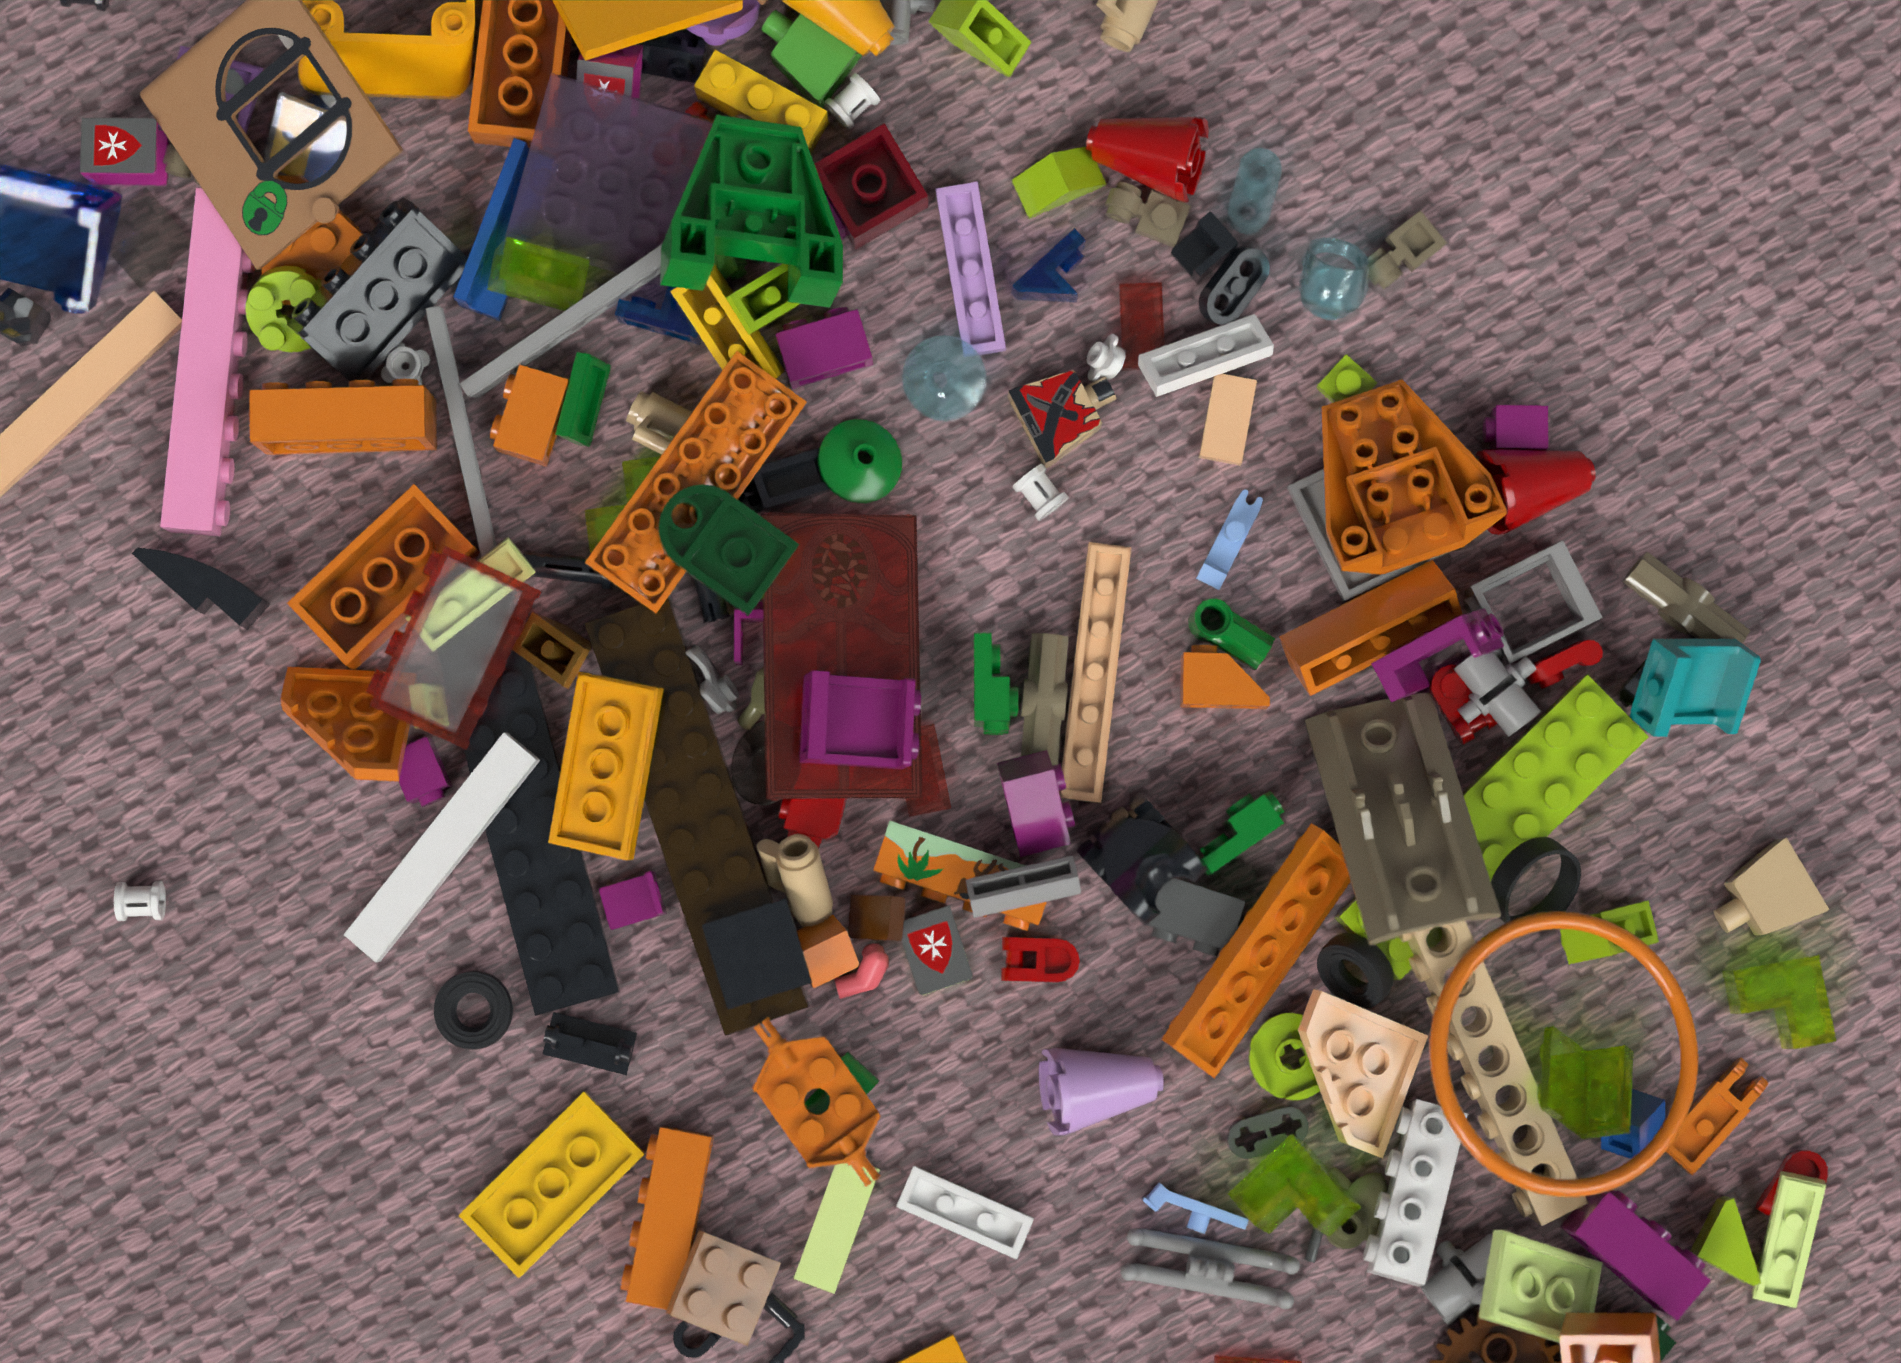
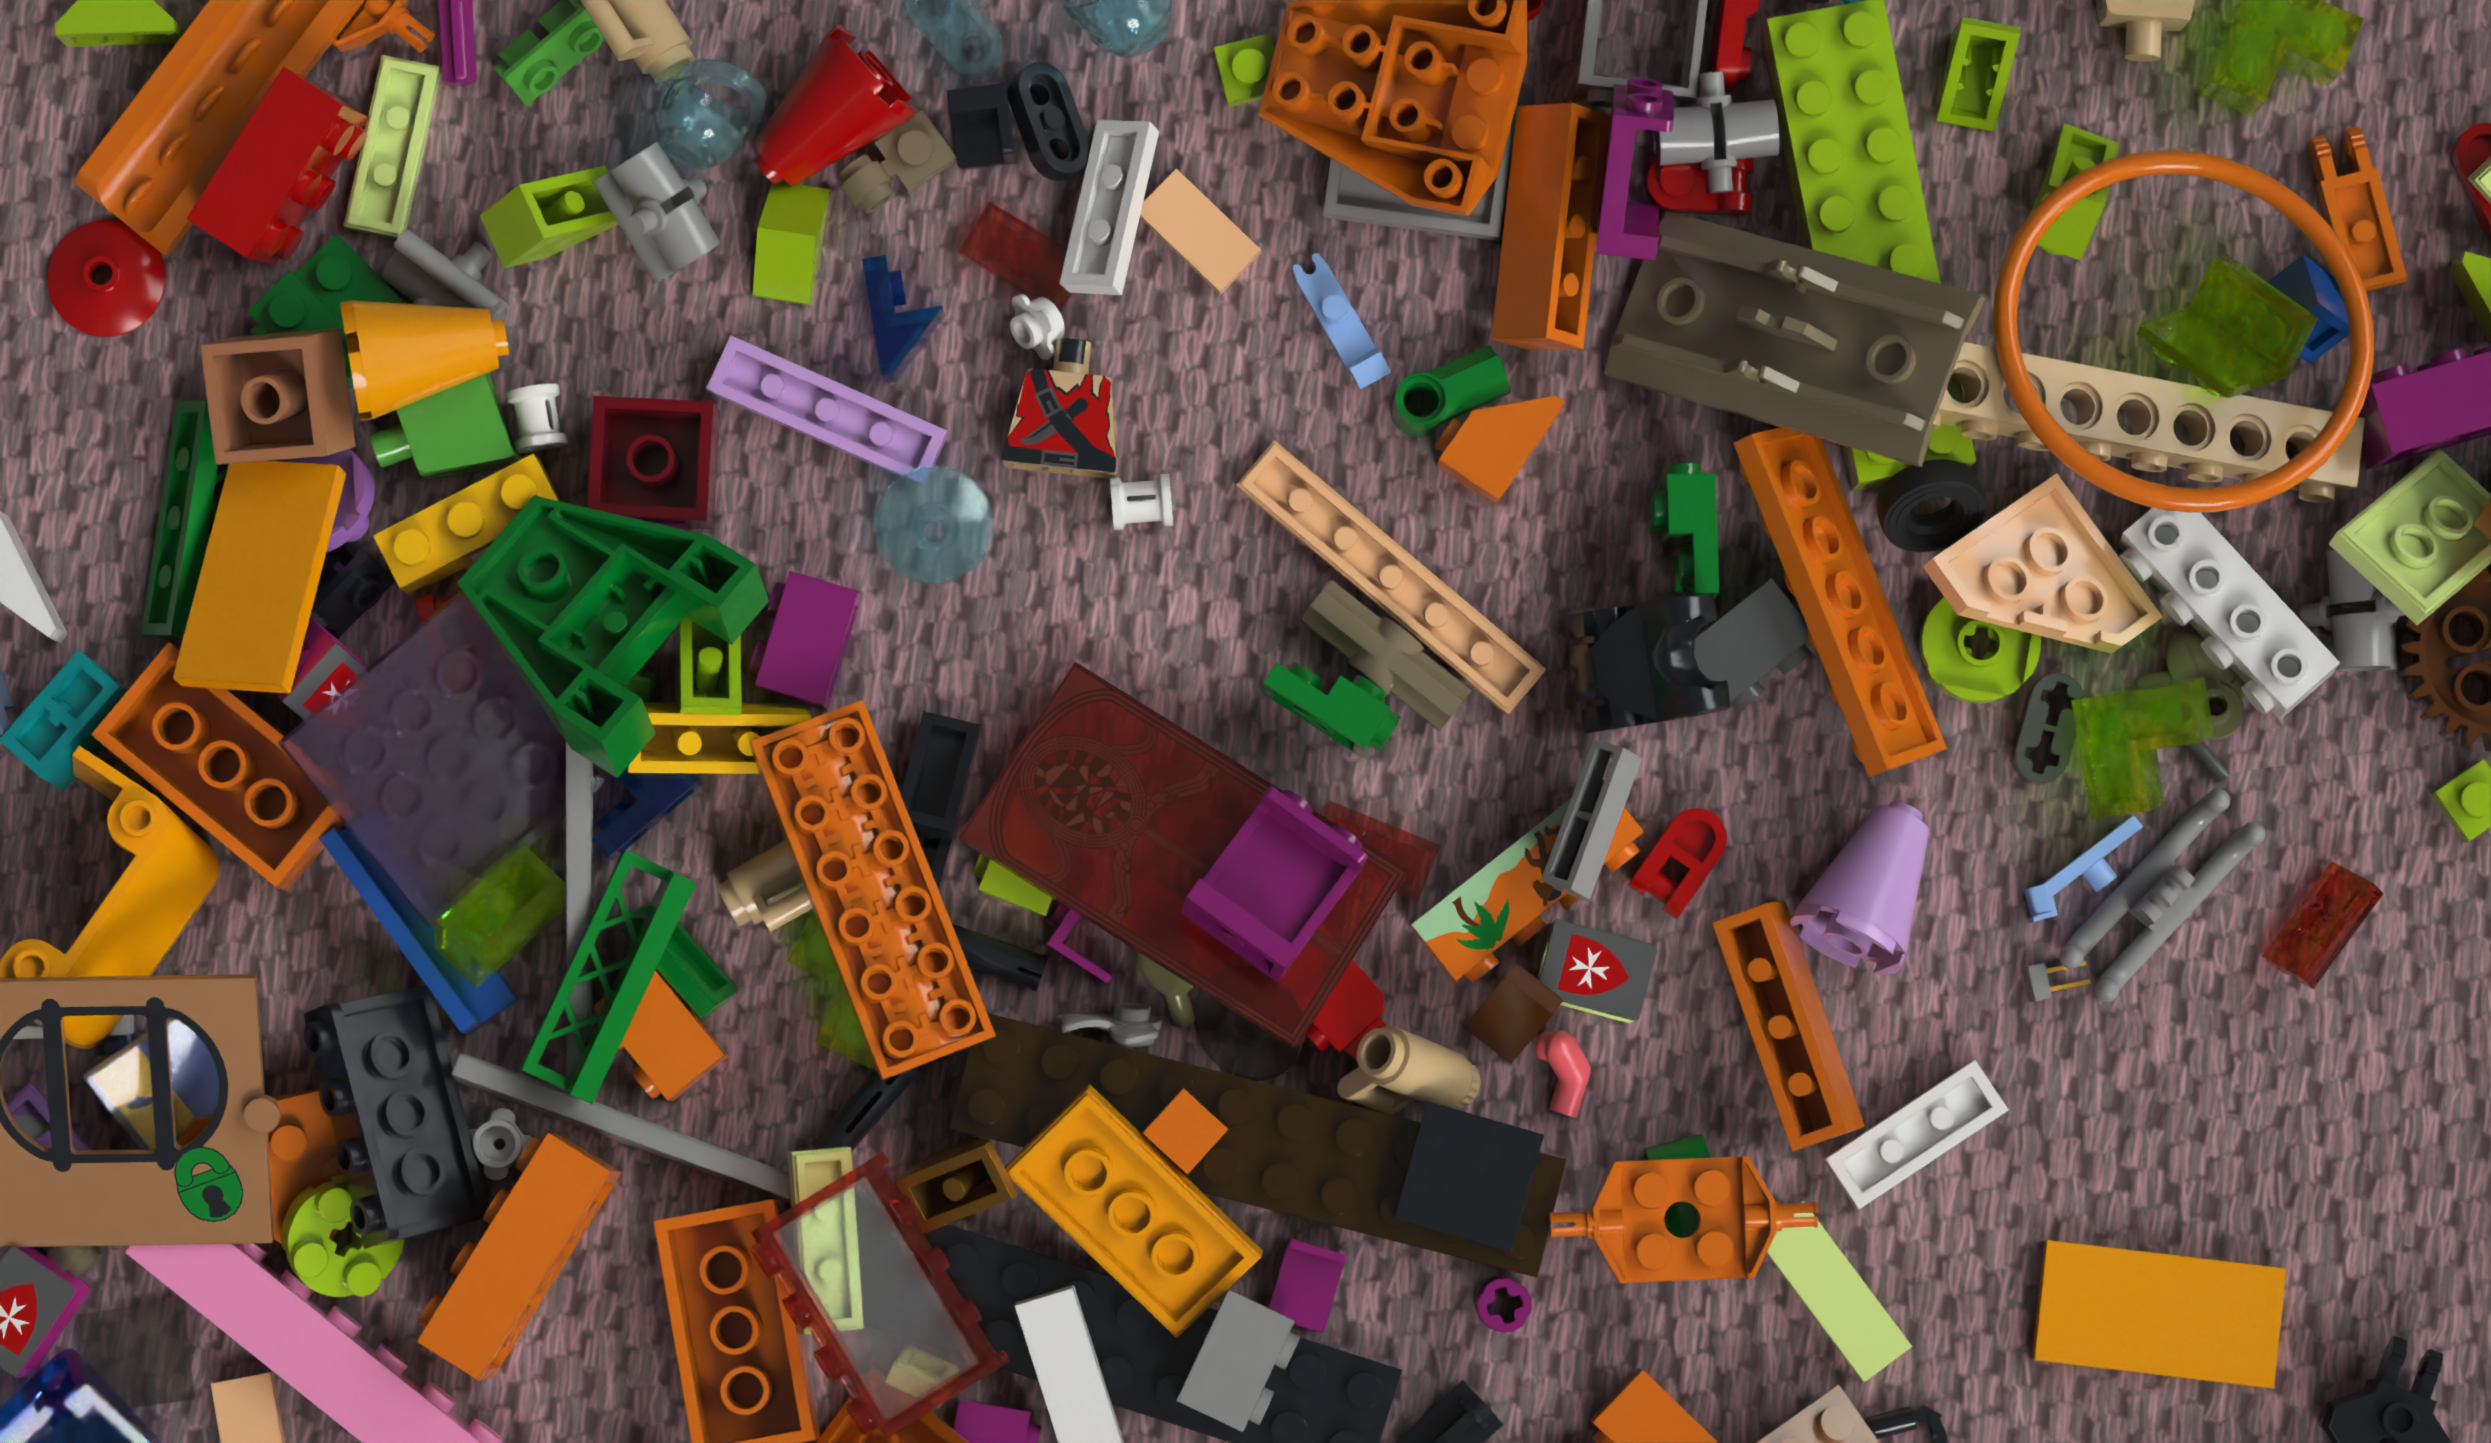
camera: 60 degrees left, 0 degrees up
(545, 376) = (628, 987): none -> green fence
(556, 888) = (1237, 1362): none -> light grey brick
(673, 764) = (1185, 1131): none -> orange tile
(684, 1028) = (1487, 1295): none -> magenta bush
(727, 547) = (973, 901): dark green tile -> none
(827, 951) = (1514, 1093): orange panel -> none
(846, 474) = (959, 710): green dish -> none
(979, 1090) = (1788, 1025): none -> orange brick
(1023, 89) = (658, 211): none -> light grey pin
(1034, 802) = (1499, 743): magenta brick -> none
(1090, 79) = (700, 128): none -> clear light blue helmet
(1107, 1227) = (2038, 983): none -> light grey piece
(1520, 860) = (1931, 232): black tyre -> none
(1642, 826) = (1977, 73): none -> lime slope

